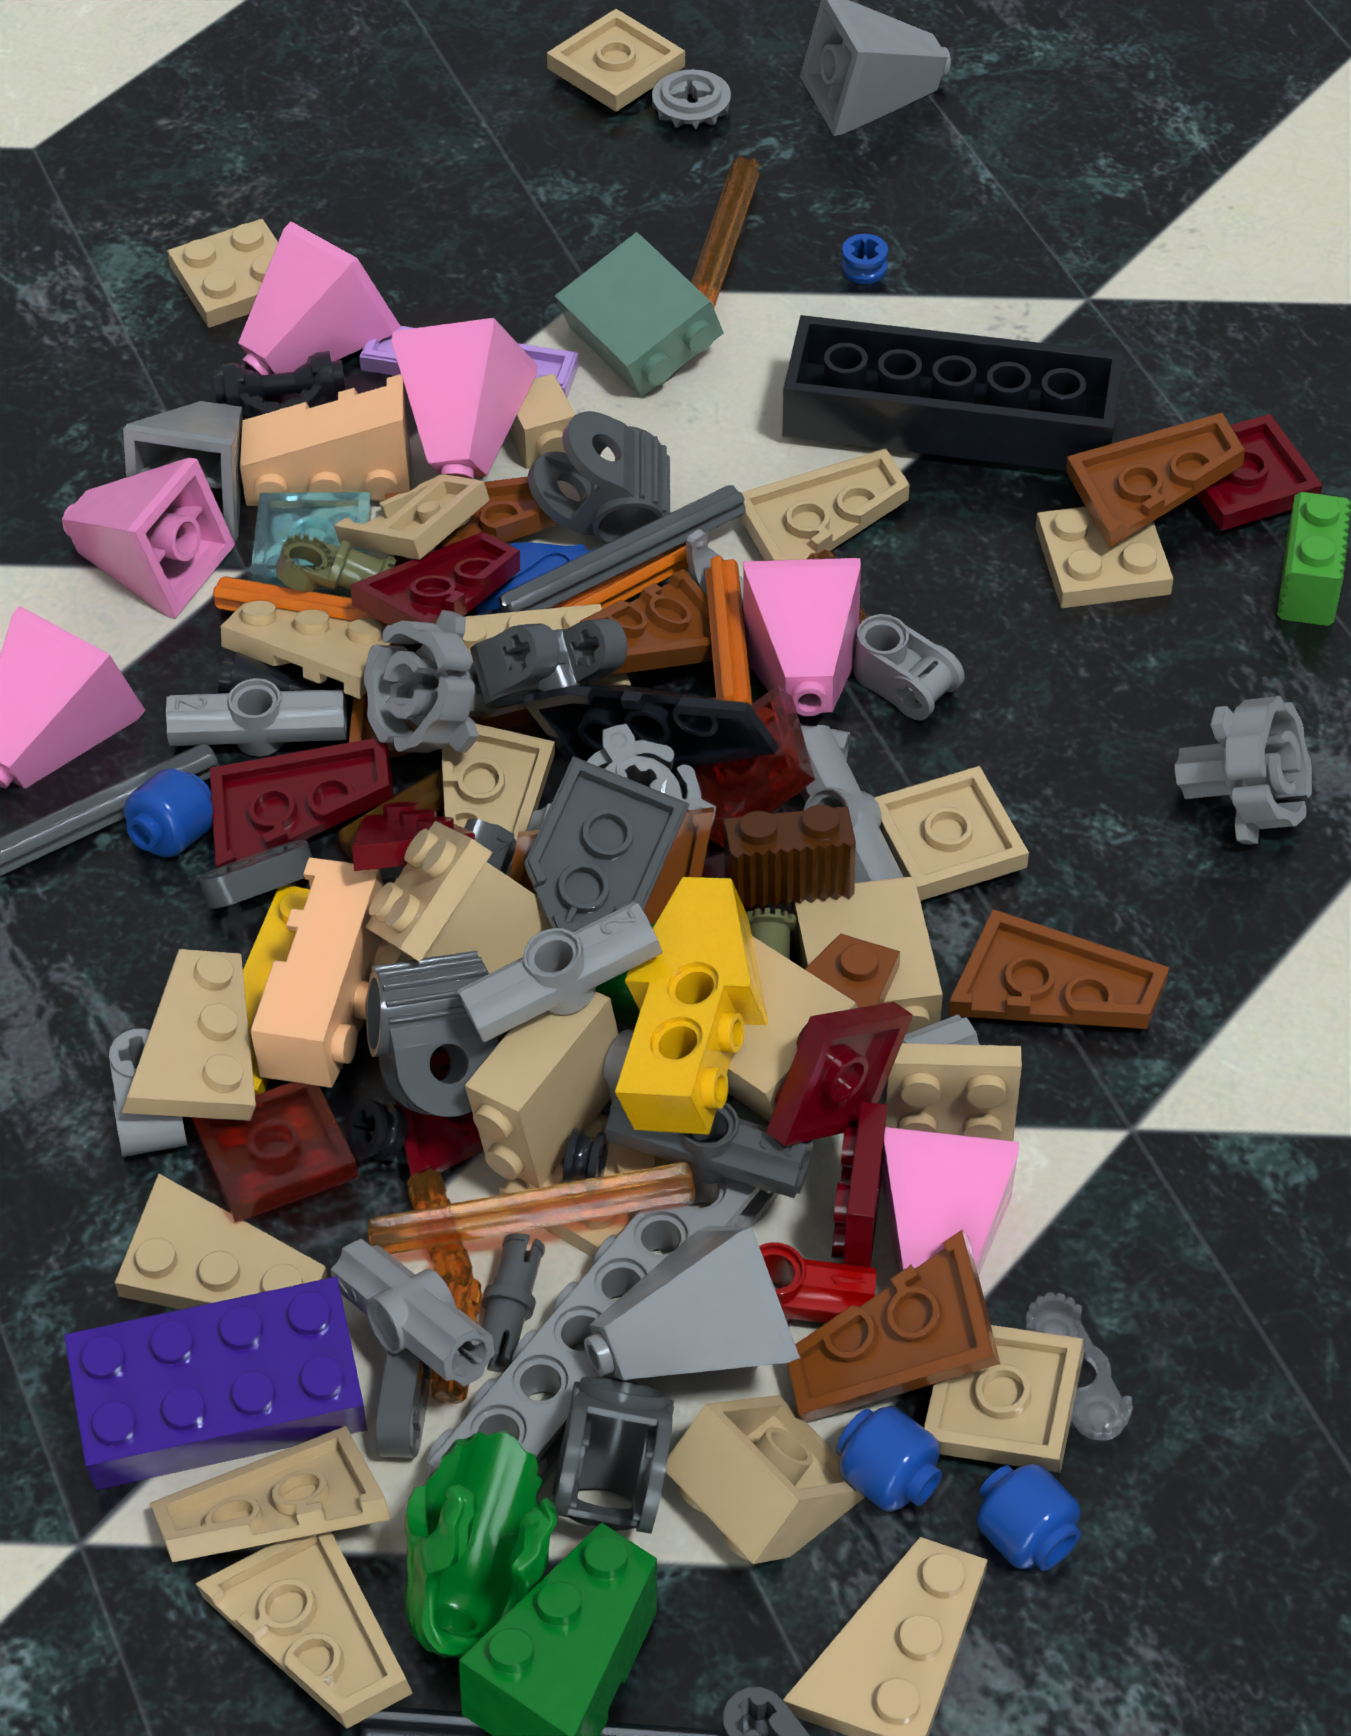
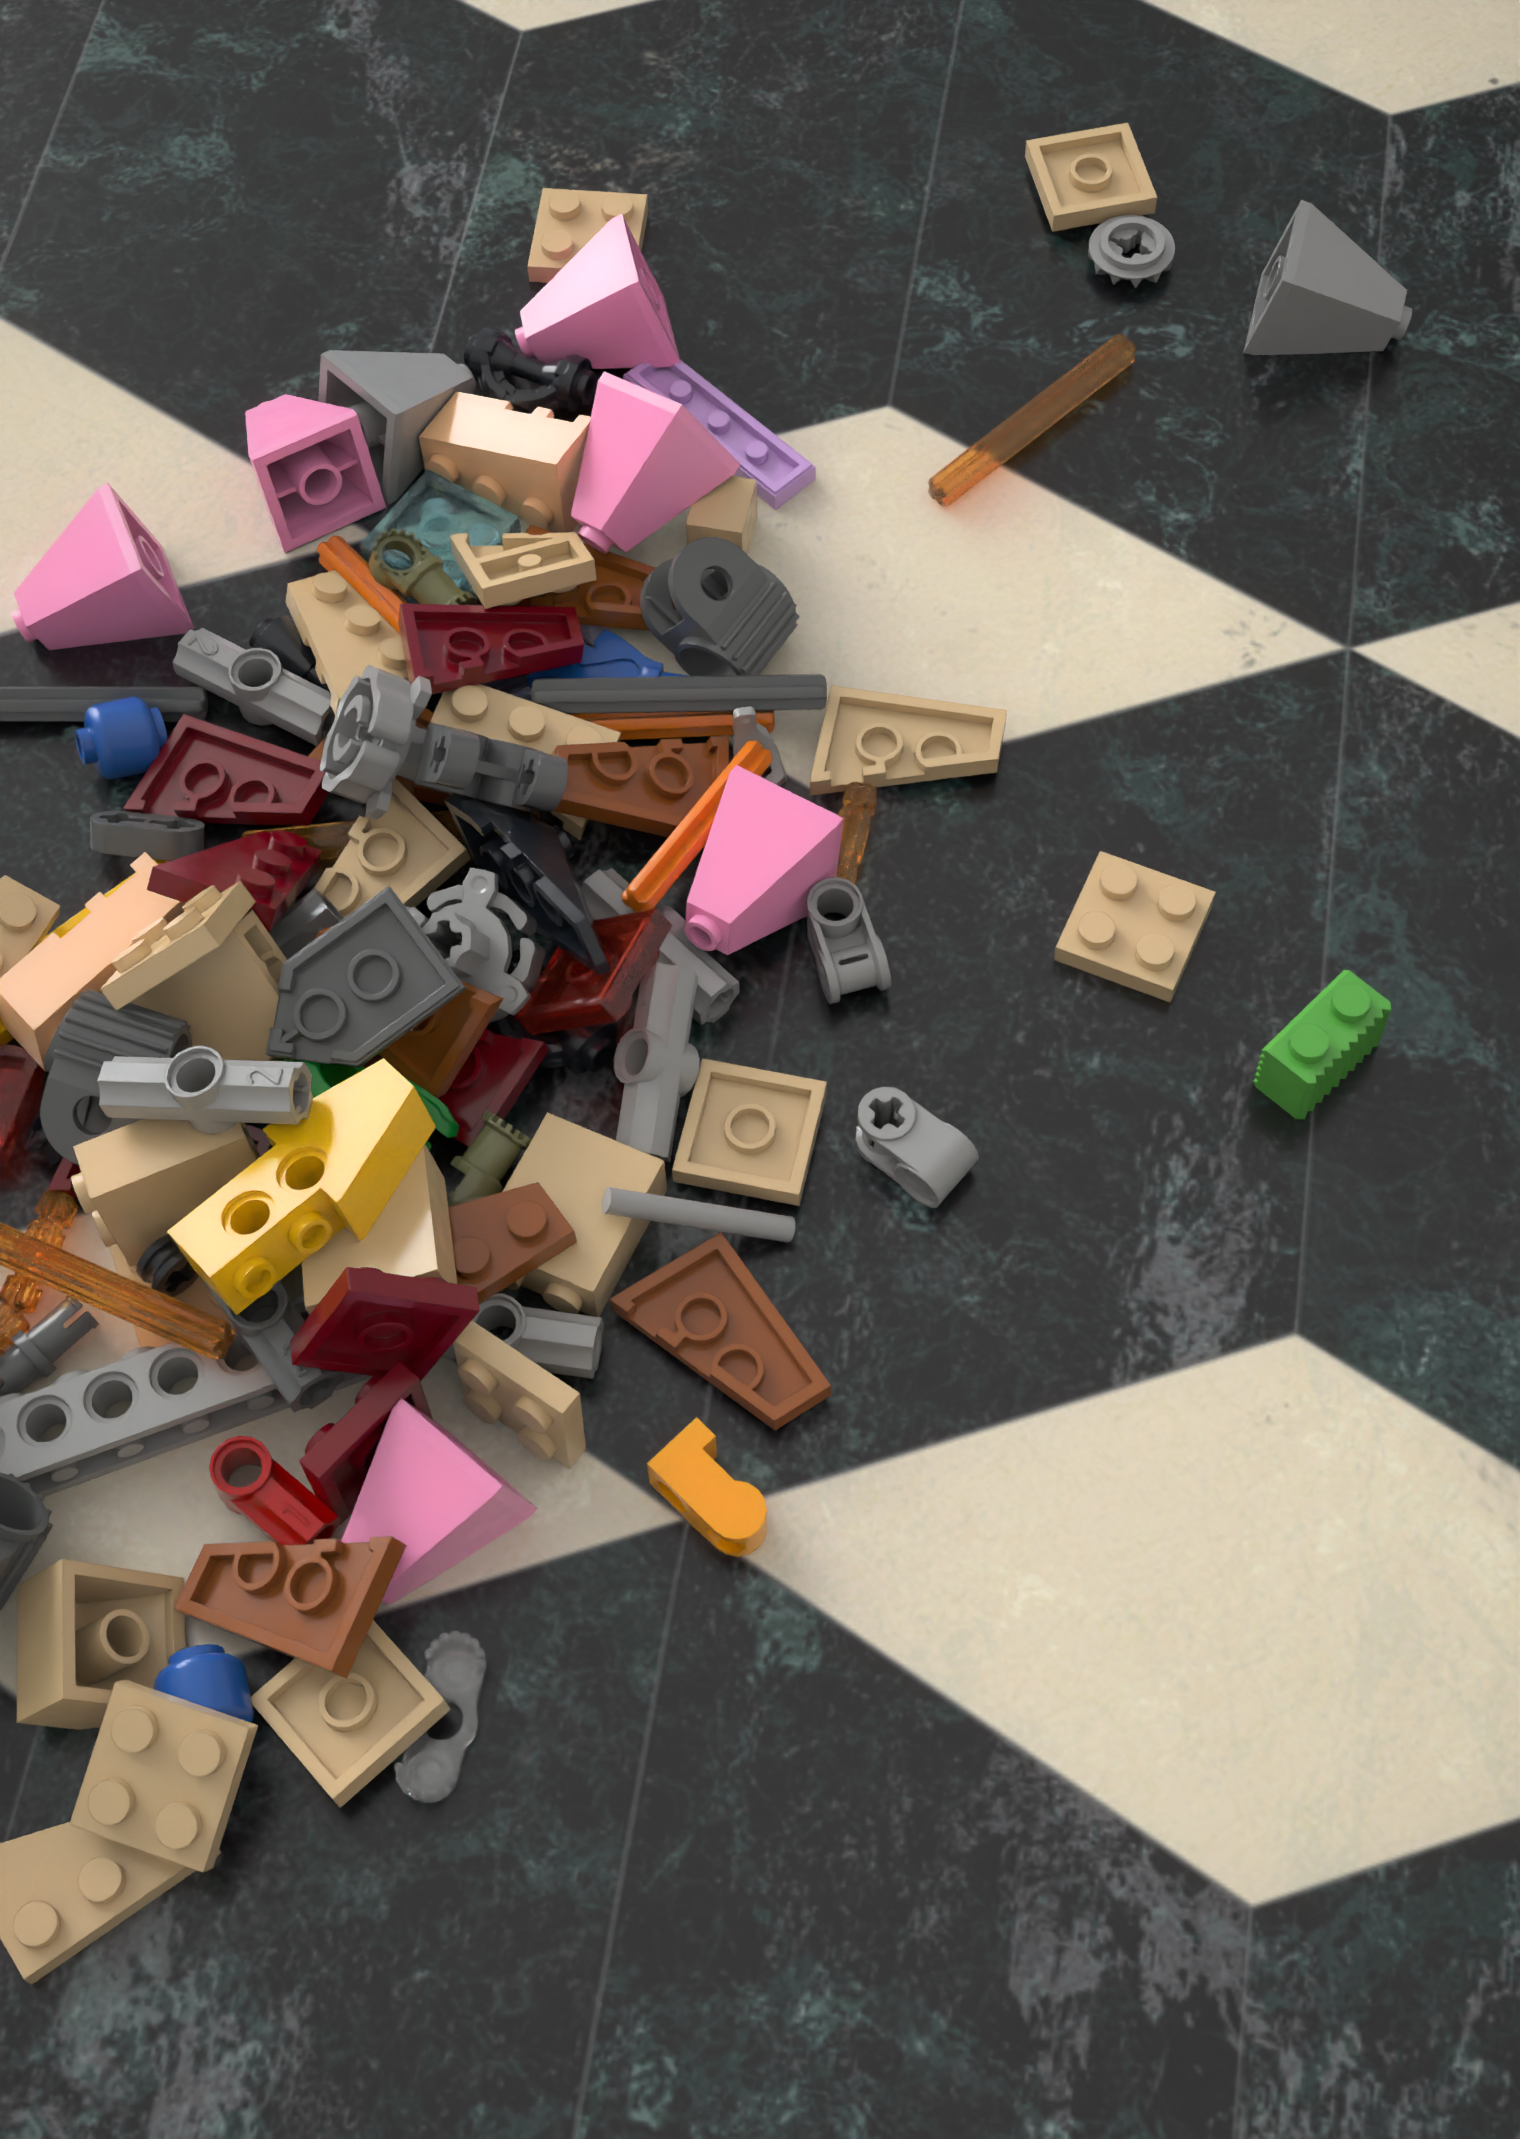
camera: 35 degrees right, 10 degrees up
(639, 314) = (887, 456): sand green brick -> none
(695, 1313) = (122, 1472): light grey slope -> none
(791, 855) = (551, 1081): reddish brown brick -> none
(864, 258) = (1159, 484): blue bush -> none
(920, 1515) = (163, 1775): none -> tan plate
(949, 393) = (1111, 689): black brick -> none
(969, 902) = (698, 1214): none -> light grey bar
(1028, 1516) = (279, 1830): blue head -> none
(1084, 776) = (912, 1145): none -> light grey piece
(1144, 1094) = (721, 1509): none -> light orange leg
(1152, 473) = (1228, 871): dark orange wing -> none
(1255, 763) = (1063, 1227): light grey piece -> none
(1266, 481) = (1339, 915): dark red plate -> none

